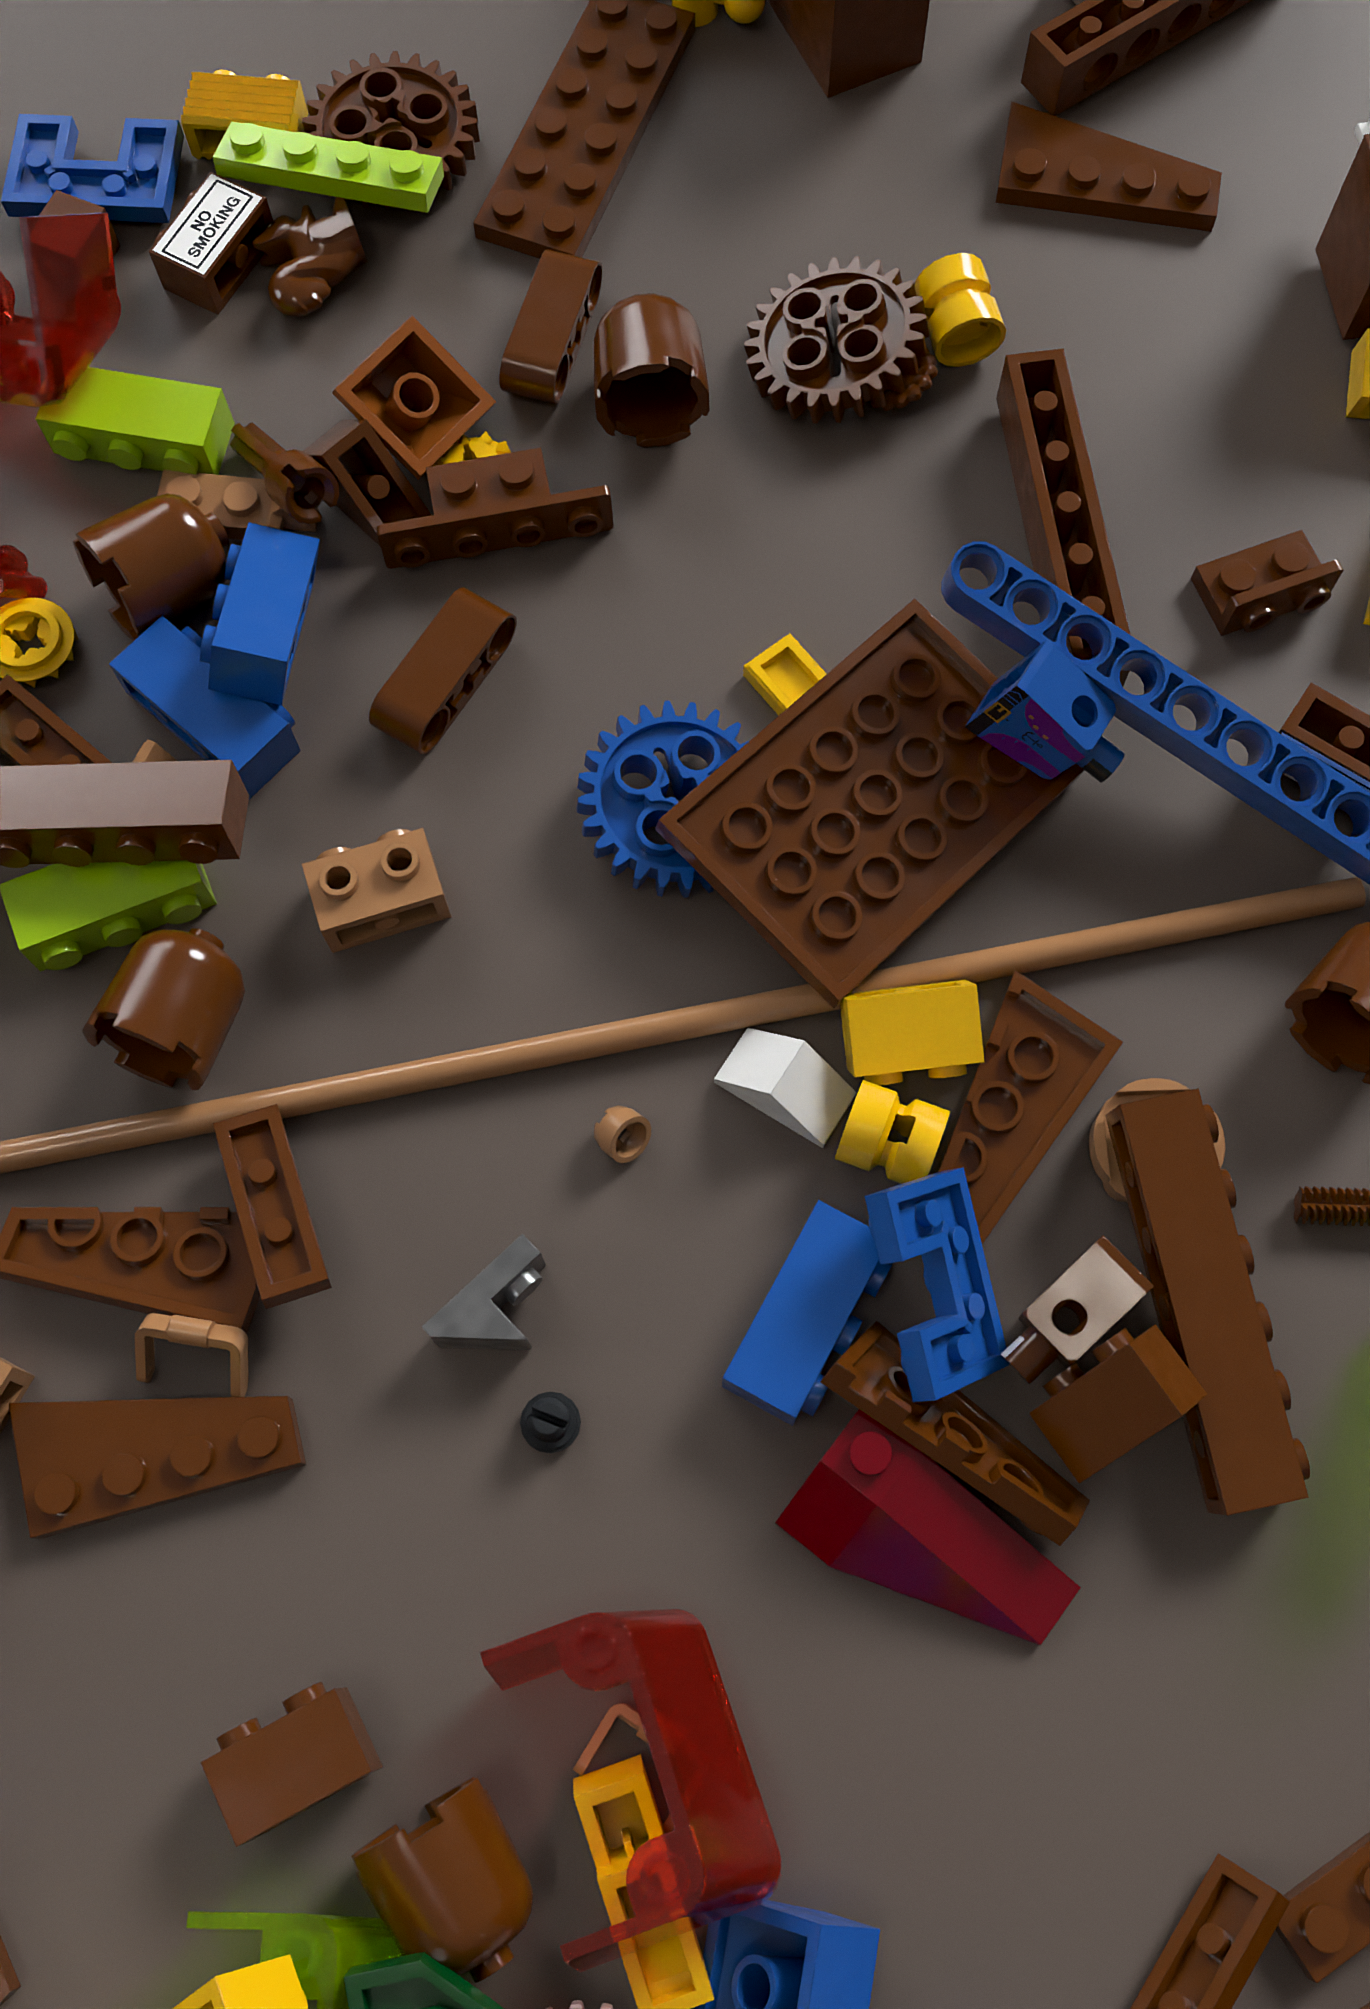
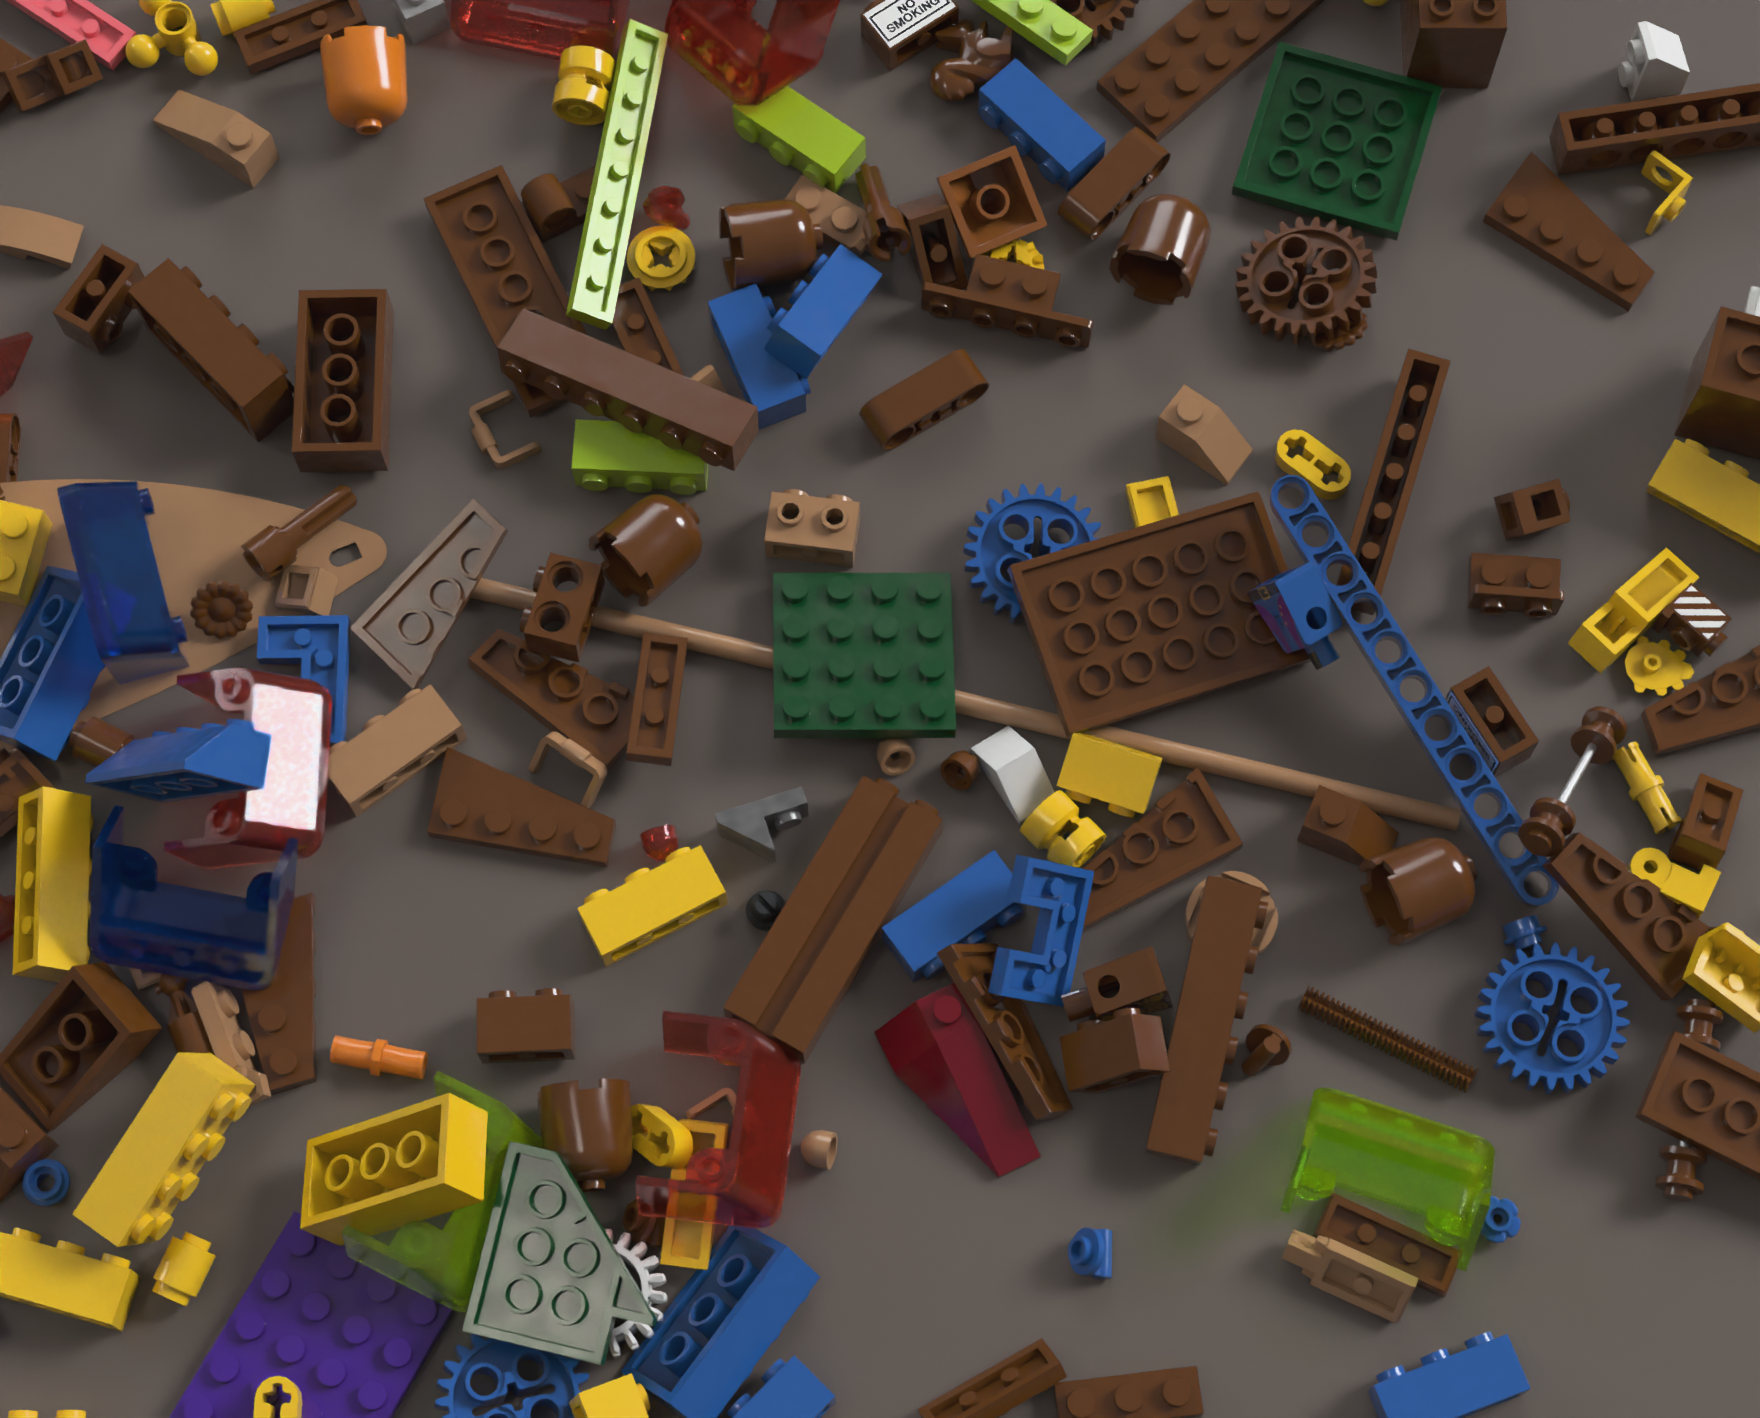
camera: 25 degrees right, 0 degrees up
(96, 1910) = (379, 1057): none -> orange pin
(102, 1134) = (572, 608): none -> reddish brown brick
(364, 1398) = (659, 841): none -> clear red hinge
(389, 1493) = (652, 904): none -> yellow brick
(451, 296) = (1040, 125): none -> blue brick
(520, 1025) = (863, 655): none -> dark green plate
(558, 1834) = (660, 1137): none -> yellow beam
(595, 1984) = (642, 1227): none -> reddish brown plate
(647, 1395) = (835, 916): none -> reddish brown brick
(703, 1110) = (952, 766): none -> reddish brown hinge
(783, 1730) = (820, 1148): none -> medium nougat hinge
(787, 177) = (1337, 140): none -> dark green plate
(806, 565) = (1203, 434): none -> medium nougat slope
(948, 536) = (1315, 461): none -> yellow beam
(959, 310) = (1404, 296): yellow wheel -> none
(1192, 80) = (1677, 189): none -> yellow bracket
(1219, 1694) = (1092, 1253): none -> blue plate
(1233, 965) = (1345, 828): none -> reddish brown slope
(1240, 485) = (1518, 513): none -> reddish brown brick
(1292, 1295) = (1266, 1046): none -> reddish brown plate

